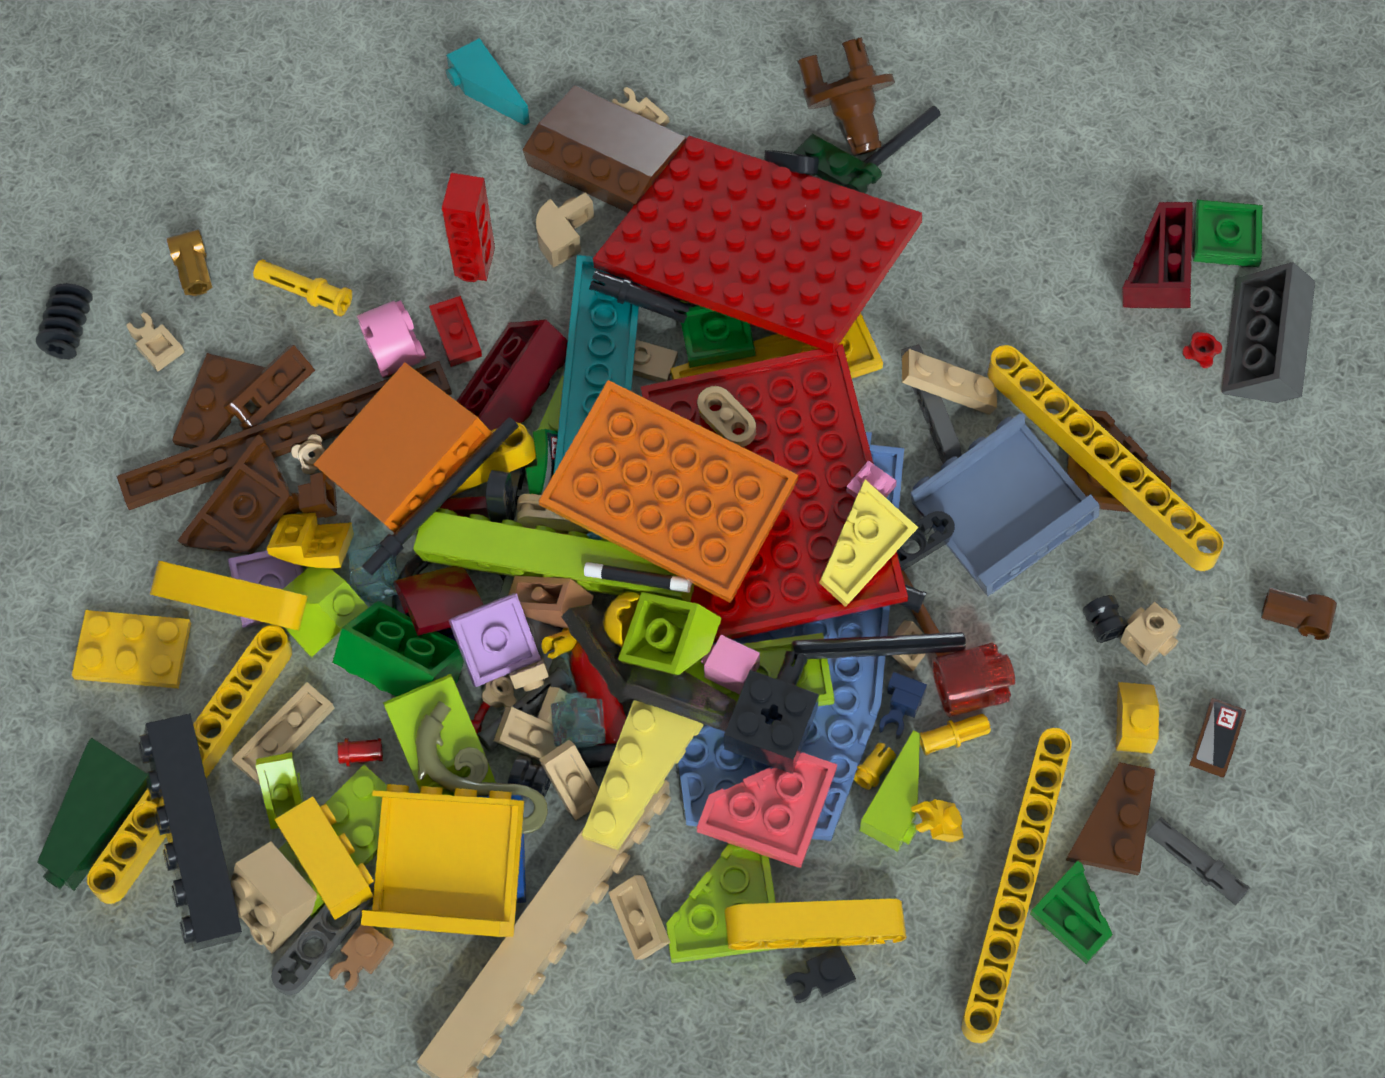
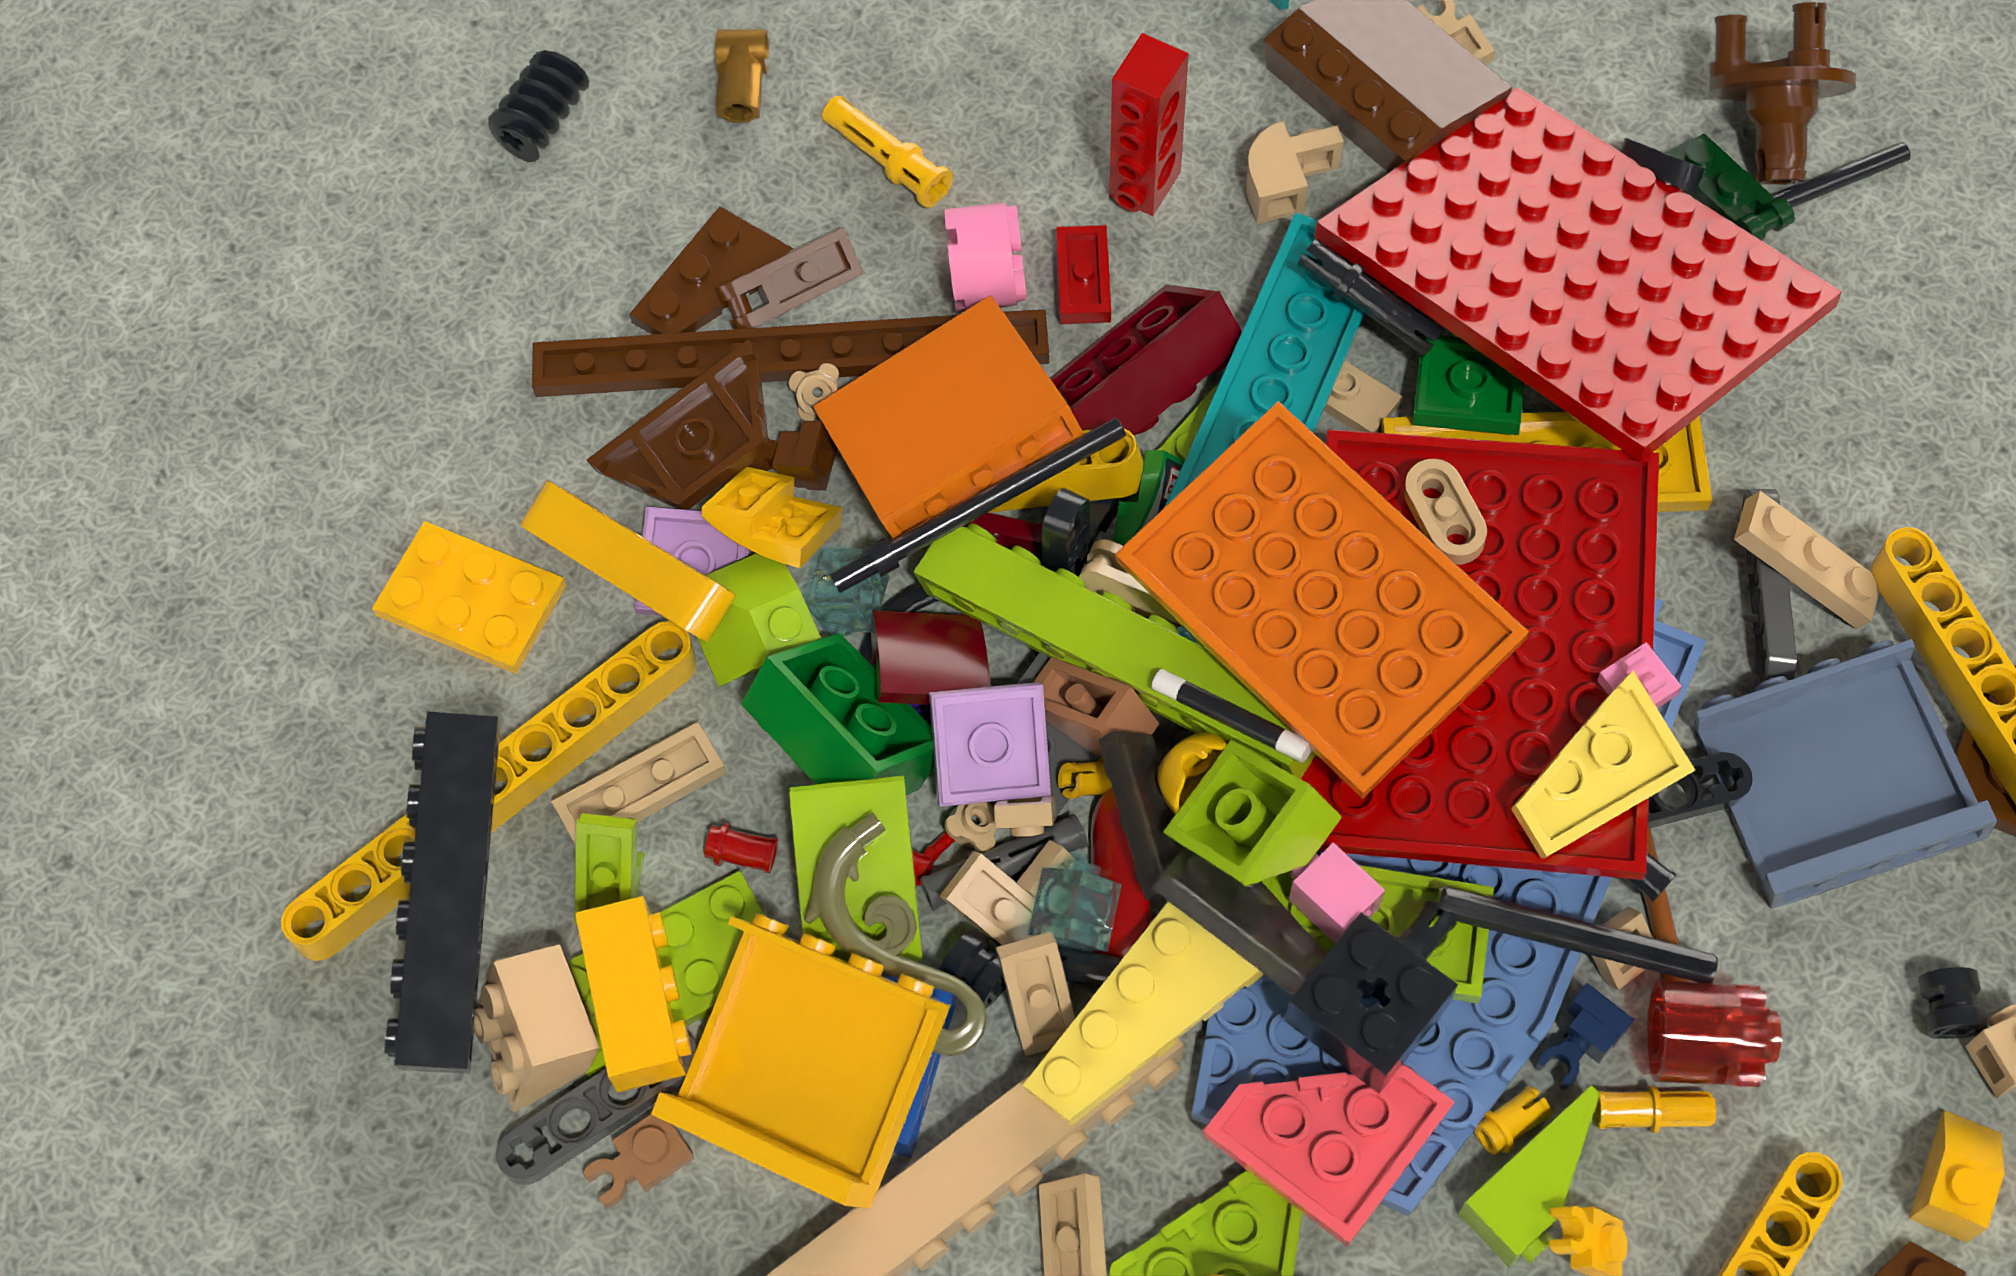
camera: 20 degrees right, 0 degrees up
(91, 814) = (322, 820): dark green slope -> none
(155, 344) = (653, 172): tan plate -> none

